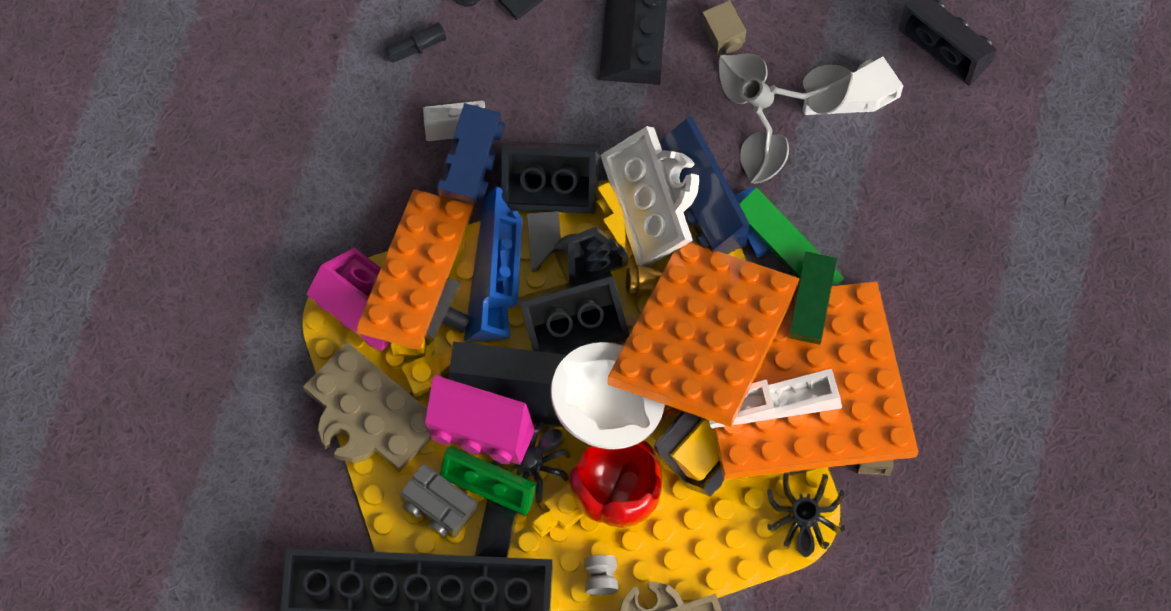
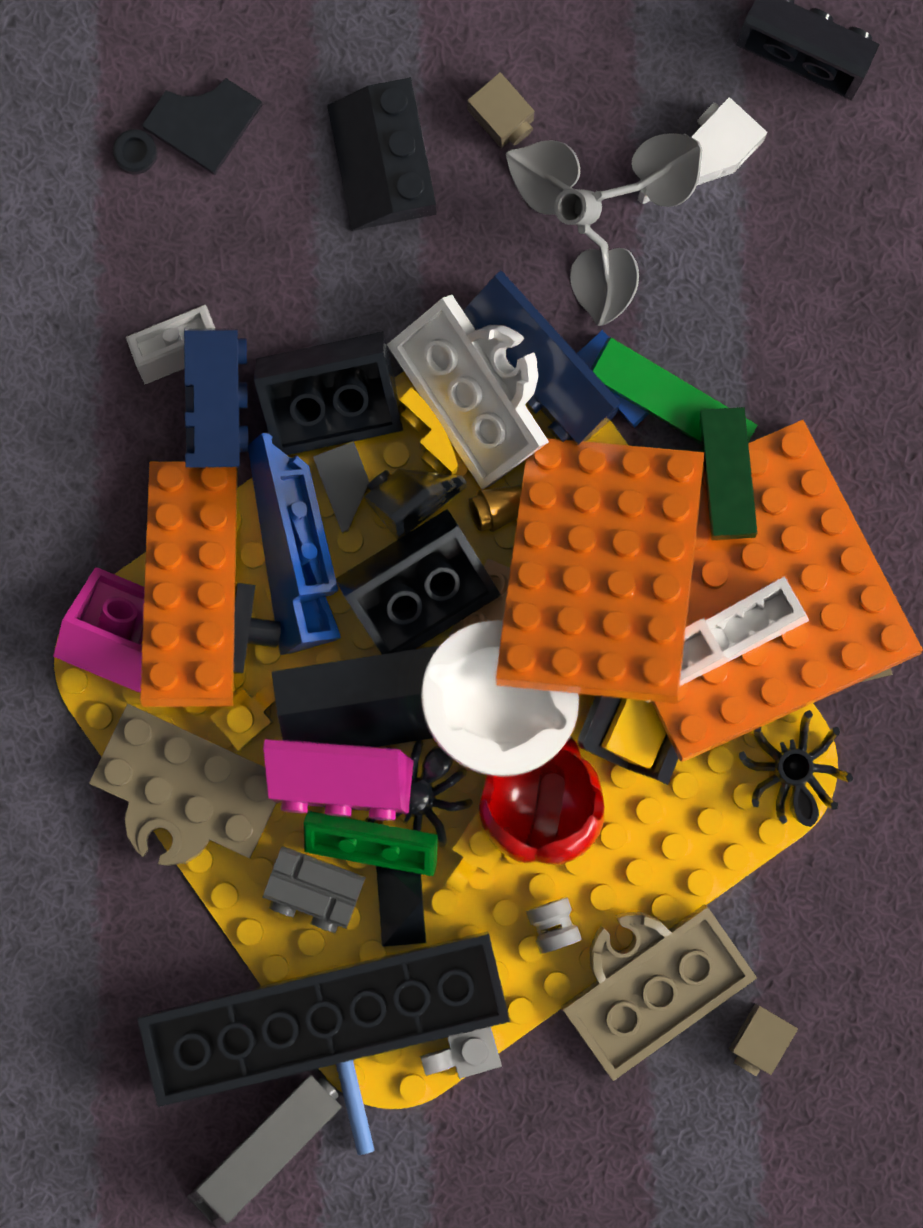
camera: 20 degrees left, 15 degrees up
(415, 42) = (87, 248): black axle -> none

